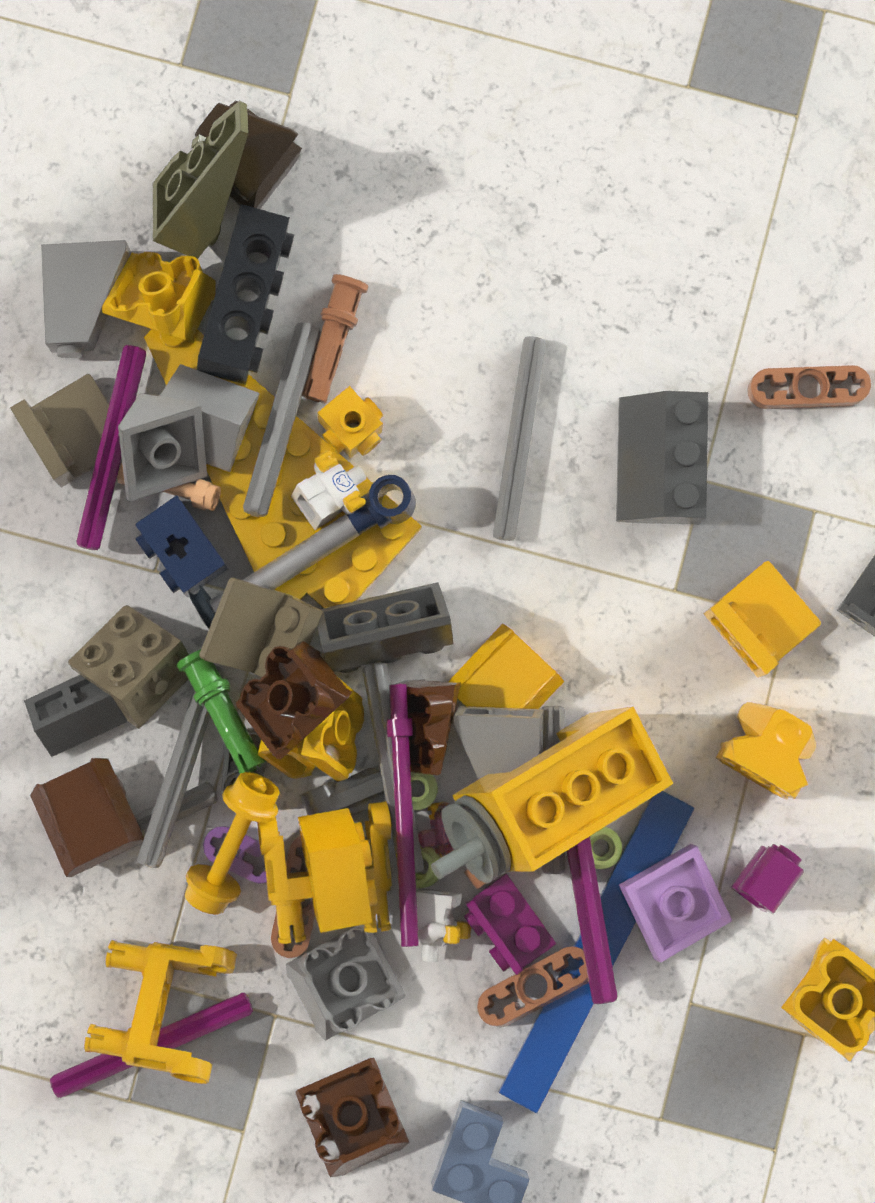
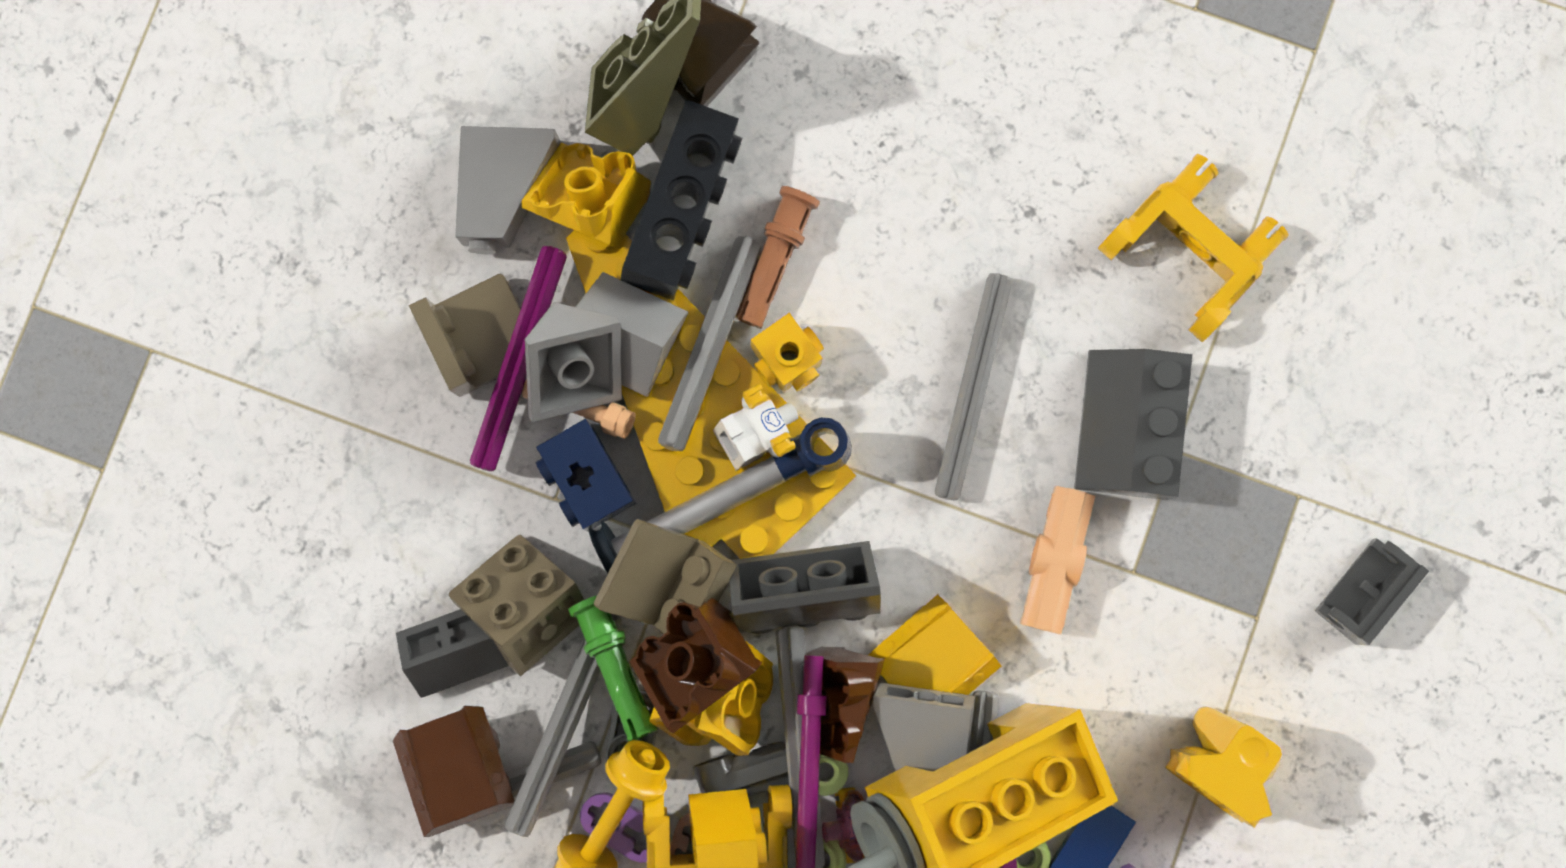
camera: 20 degrees right, 0 degrees up
(606, 584) = (1057, 559): none -> light nougat piece
(682, 265) = (1234, 263): none -> yellow connector
(762, 619) = (1231, 615): yellow bracket -> none
(778, 378) = (1339, 345): nougat beam -> none

